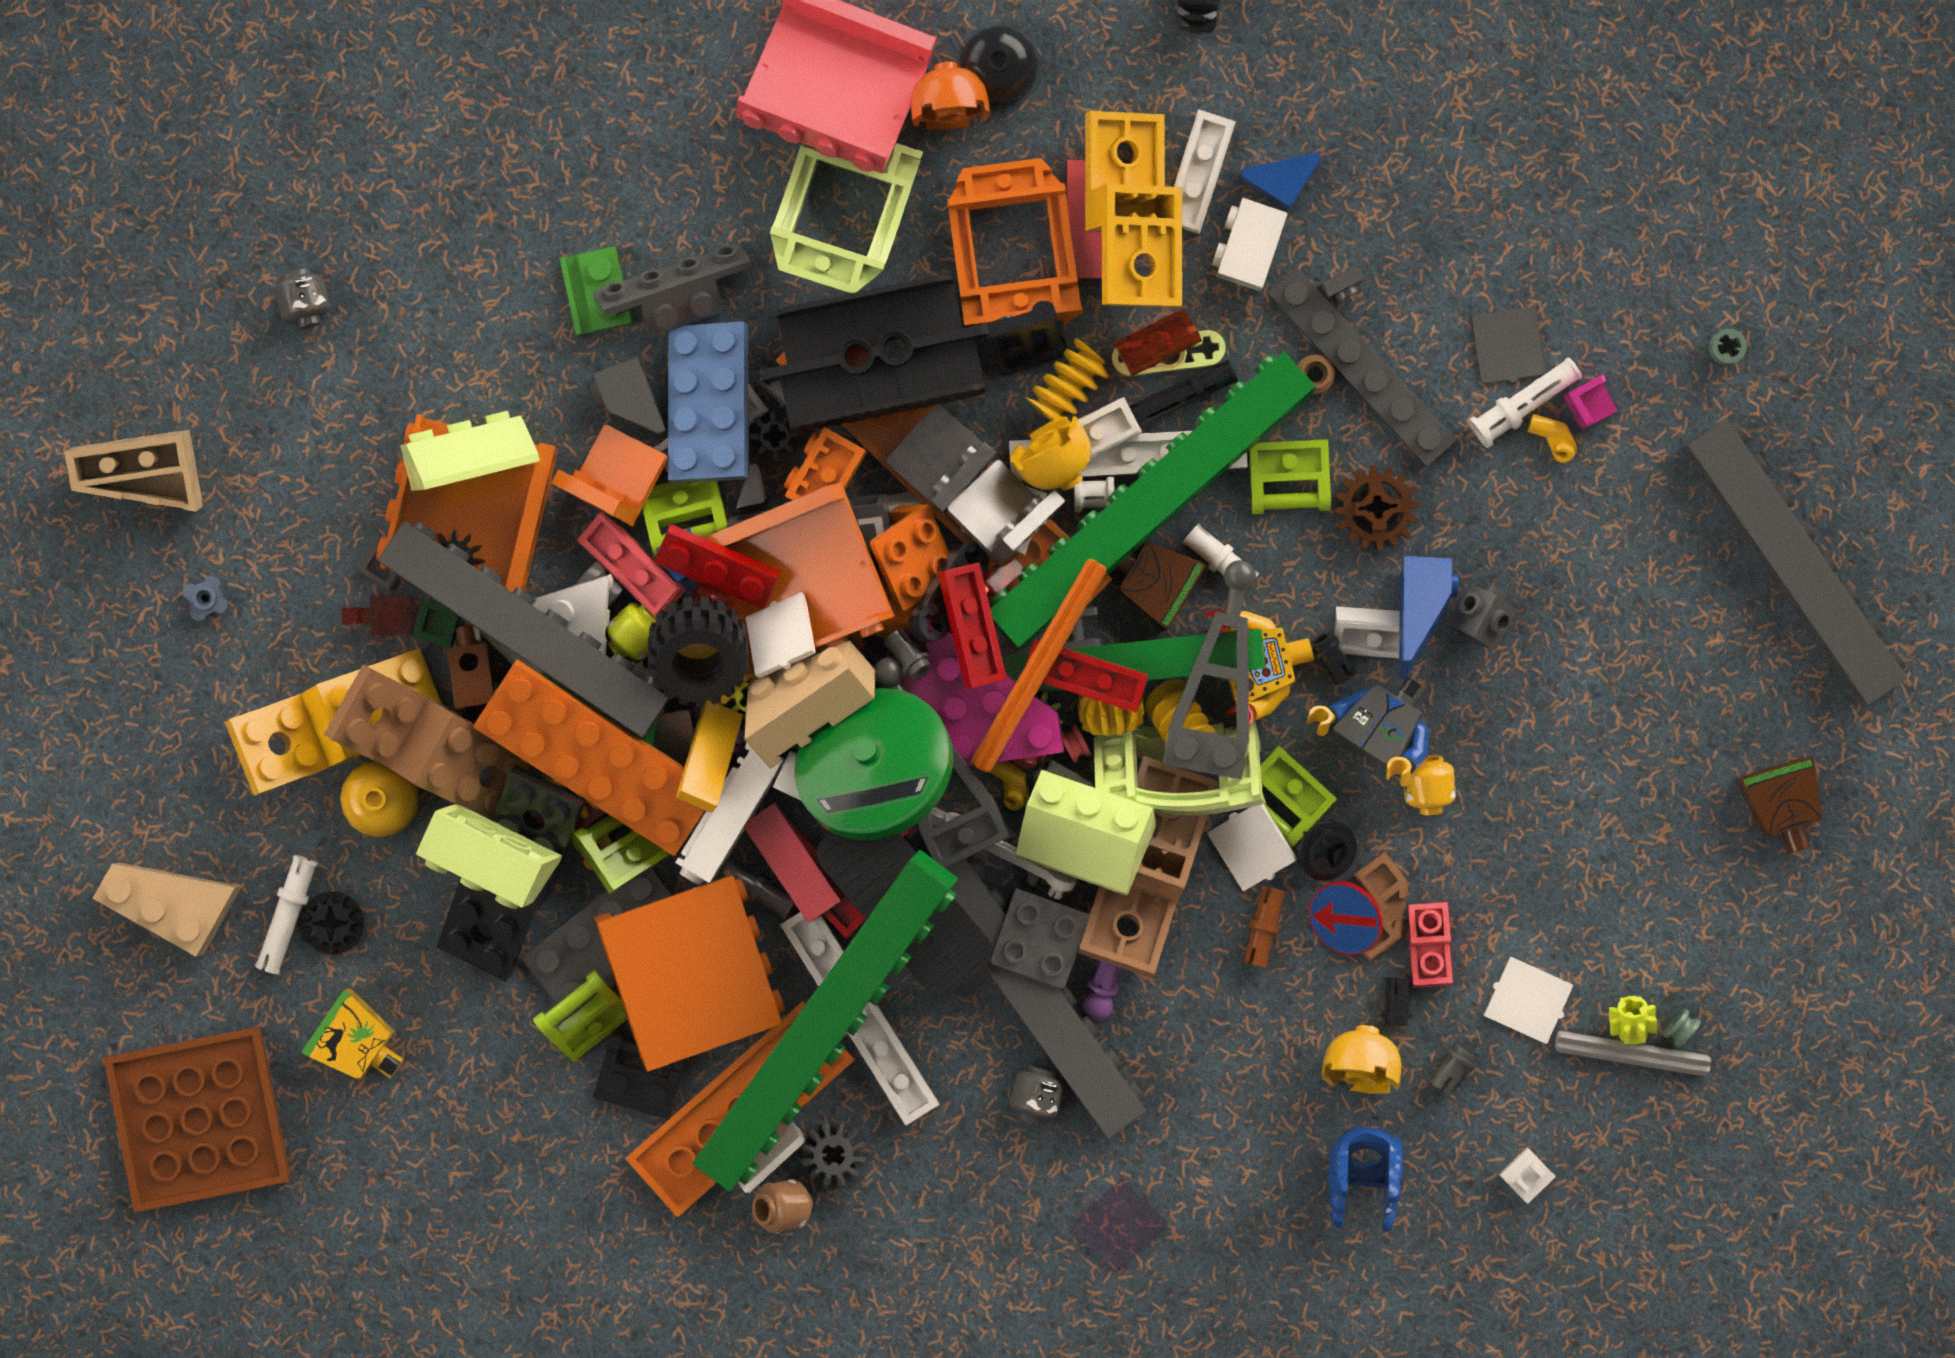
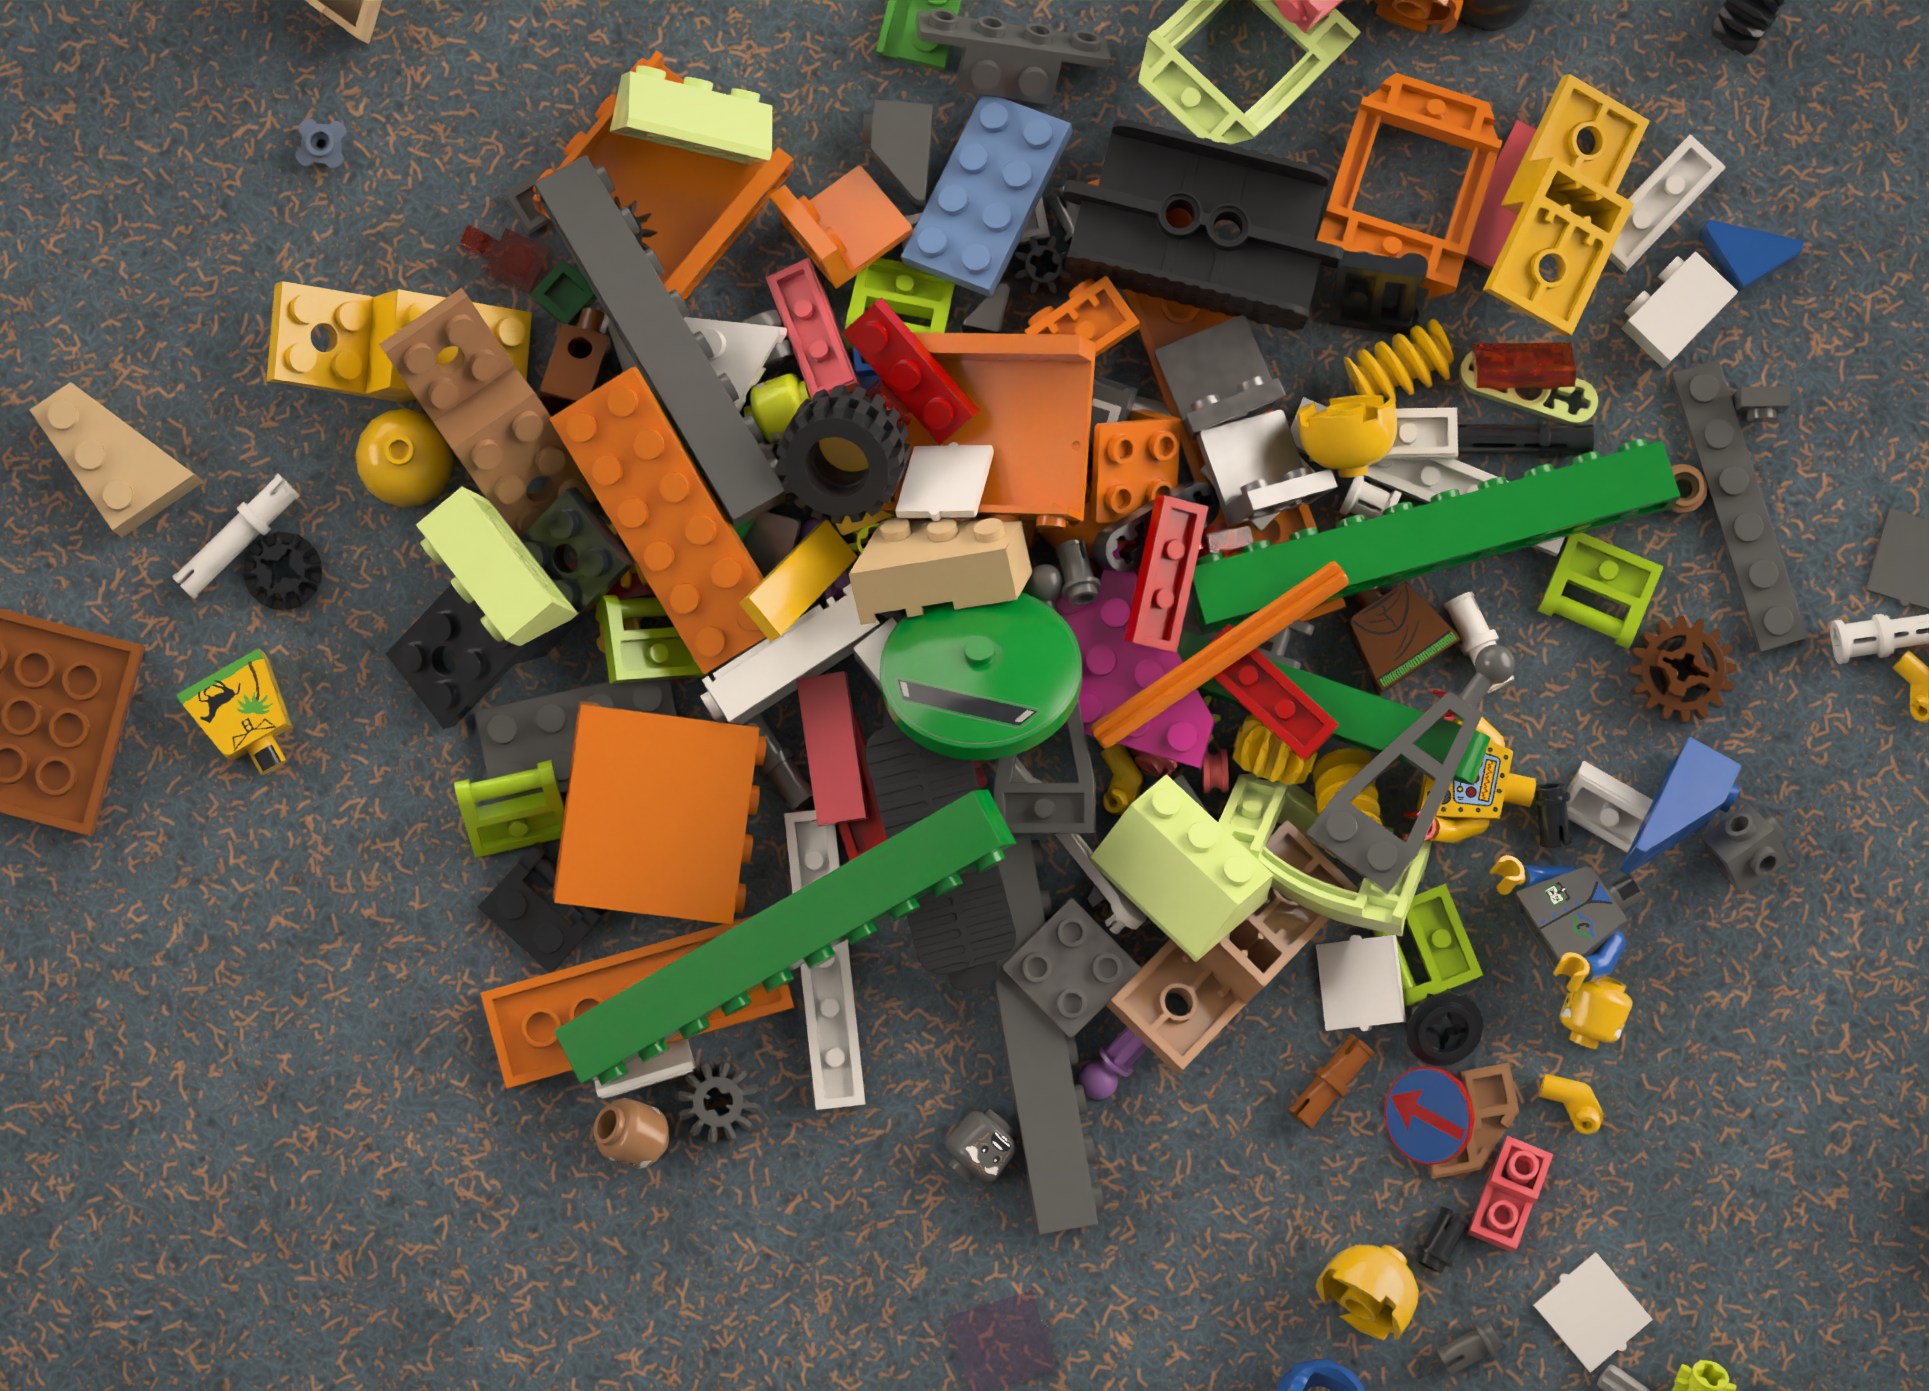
camera: 20 degrees right, 5 degrees down
(1447, 854) = (1577, 1099): none -> yellow arm

